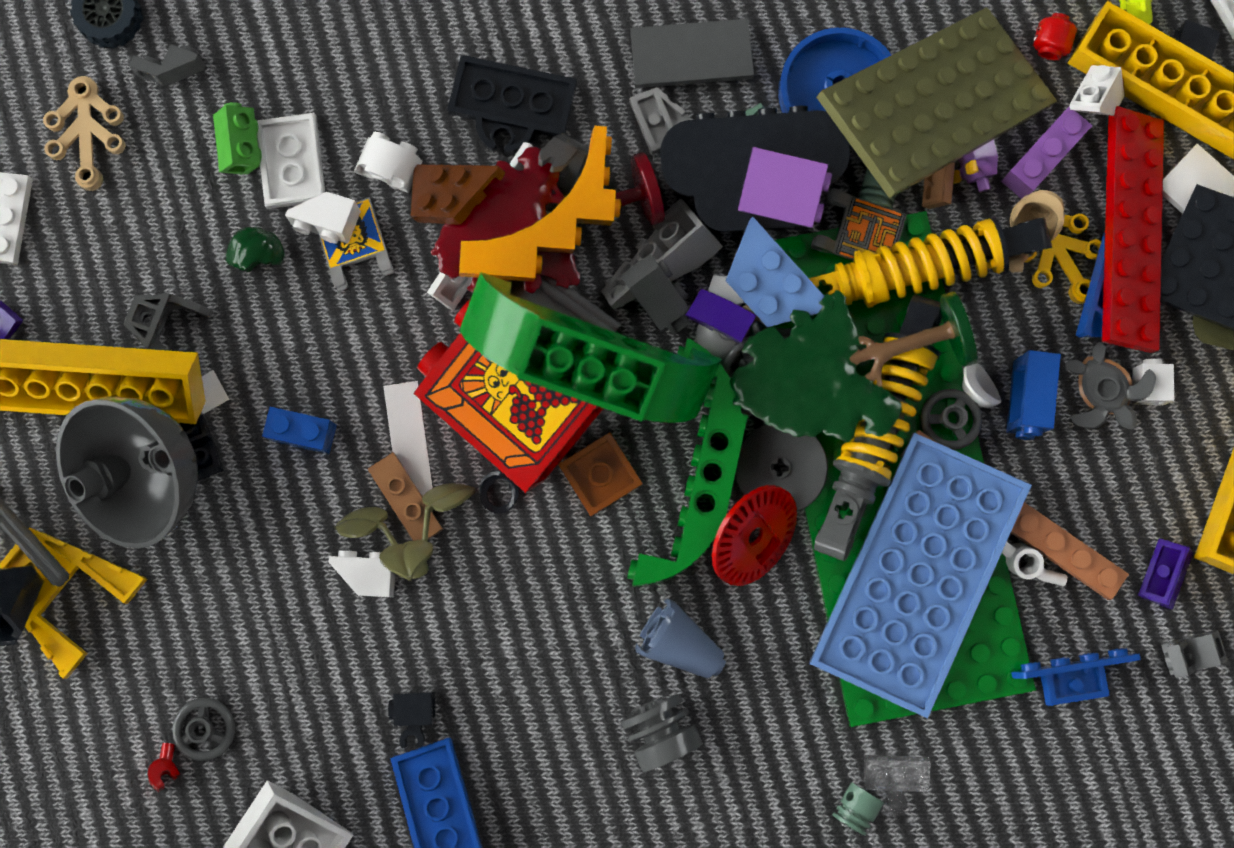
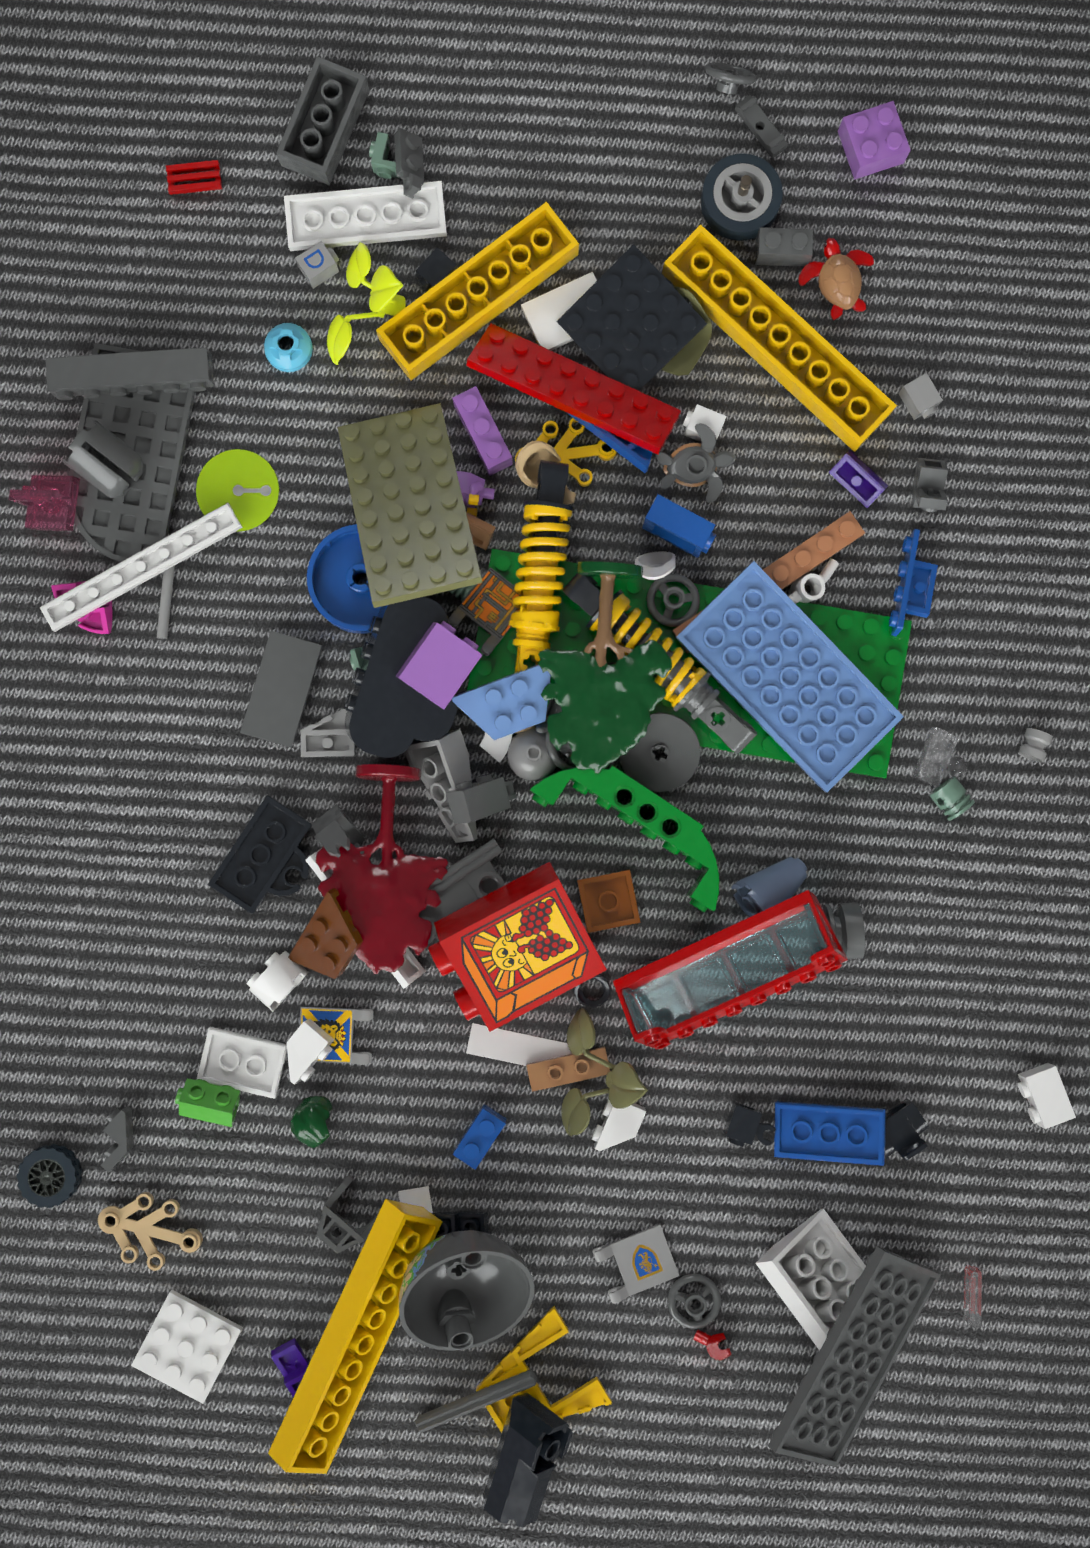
camera: 70 degrees left, 5 degrees up
(228, 655) = (642, 1261): none -> light grey flag
(575, 629) = (729, 971): none -> window
(585, 358) = (523, 886): green slope -> none
(587, 203) = (400, 862): light orange arch -> none
(721, 315) = (520, 754): dark purple slope -> none
(764, 508) = (700, 774): red piece -> none
(1055, 36) = (385, 382): red head -> none
(1099, 91) = (451, 369): white slope -> none

